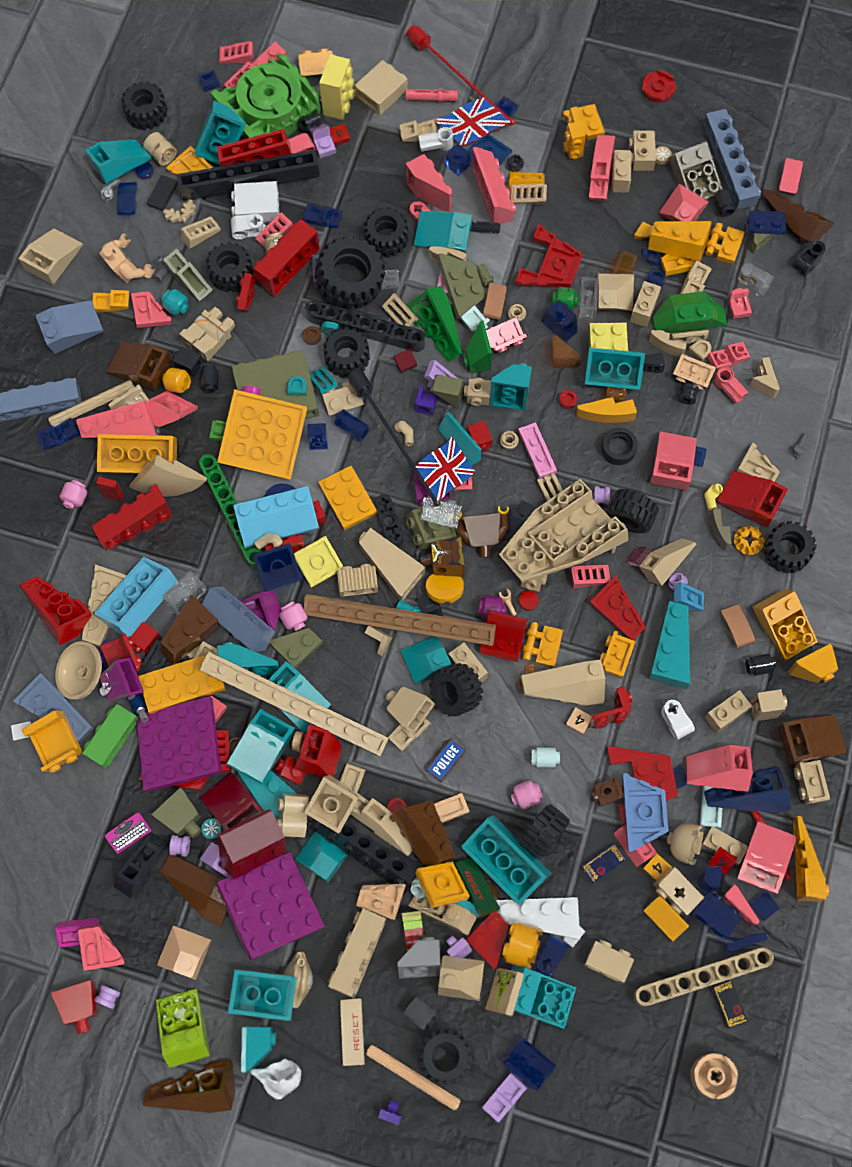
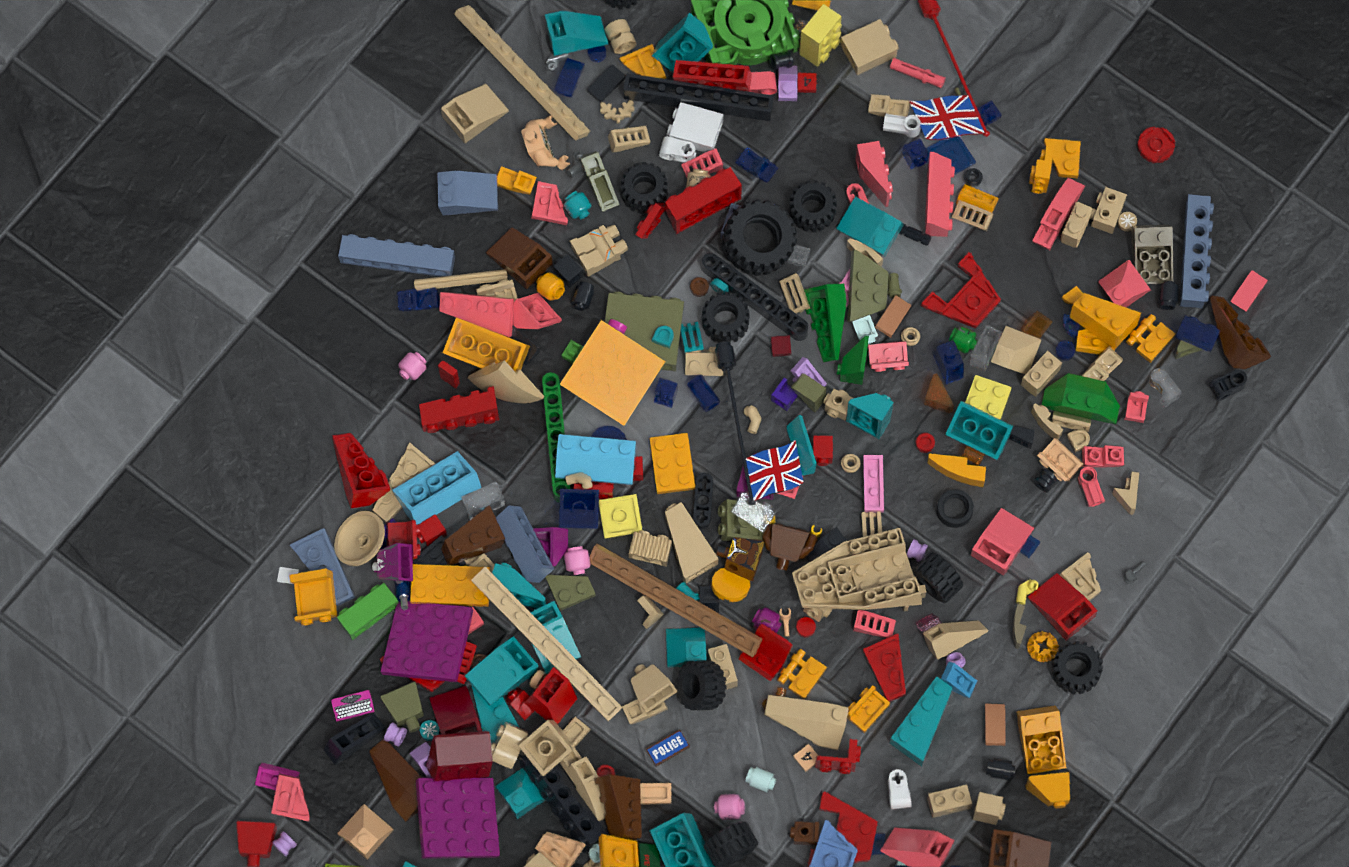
camera: 20 degrees right, 0 degrees up
(83, 207) = (522, 72): none -> tan plate

